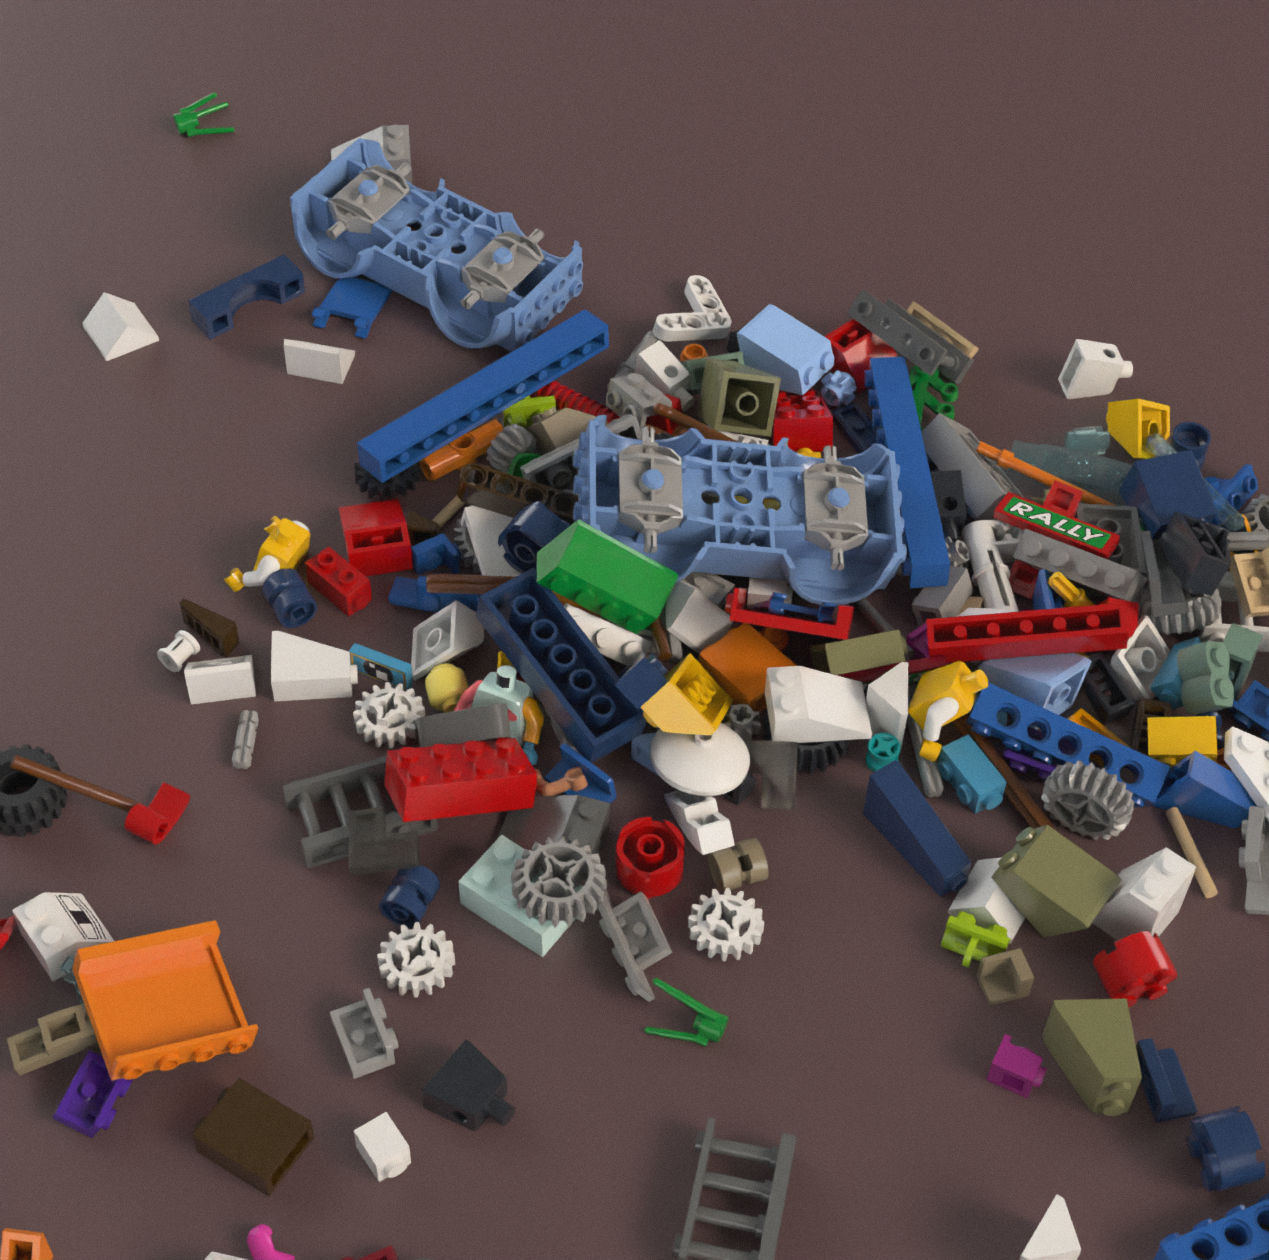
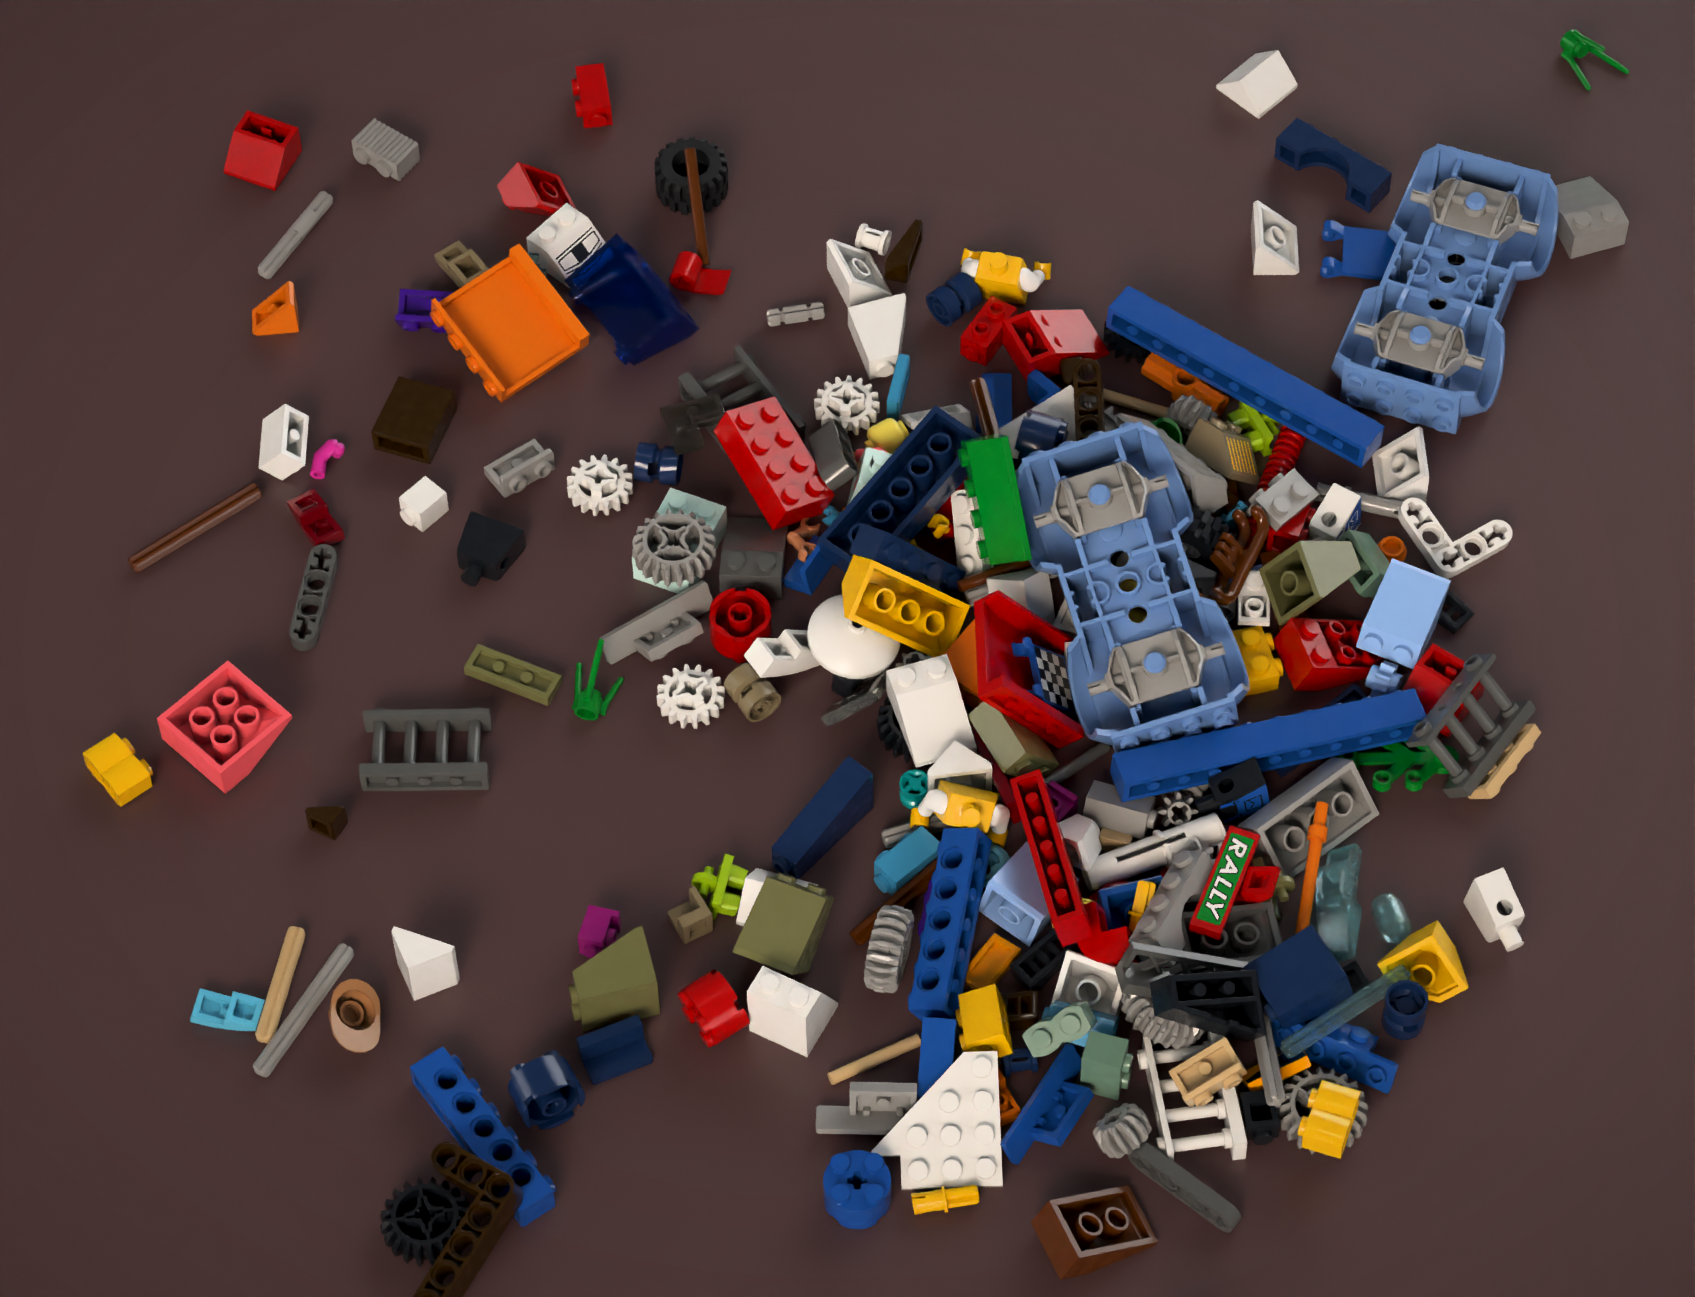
camera: 80 degrees right, 5 degrees up
(178, 880) = (630, 301): none -> clear blue windscreen
(623, 320) = (1402, 467): none -> white slope
(651, 1095) = (513, 675): none -> olive plate

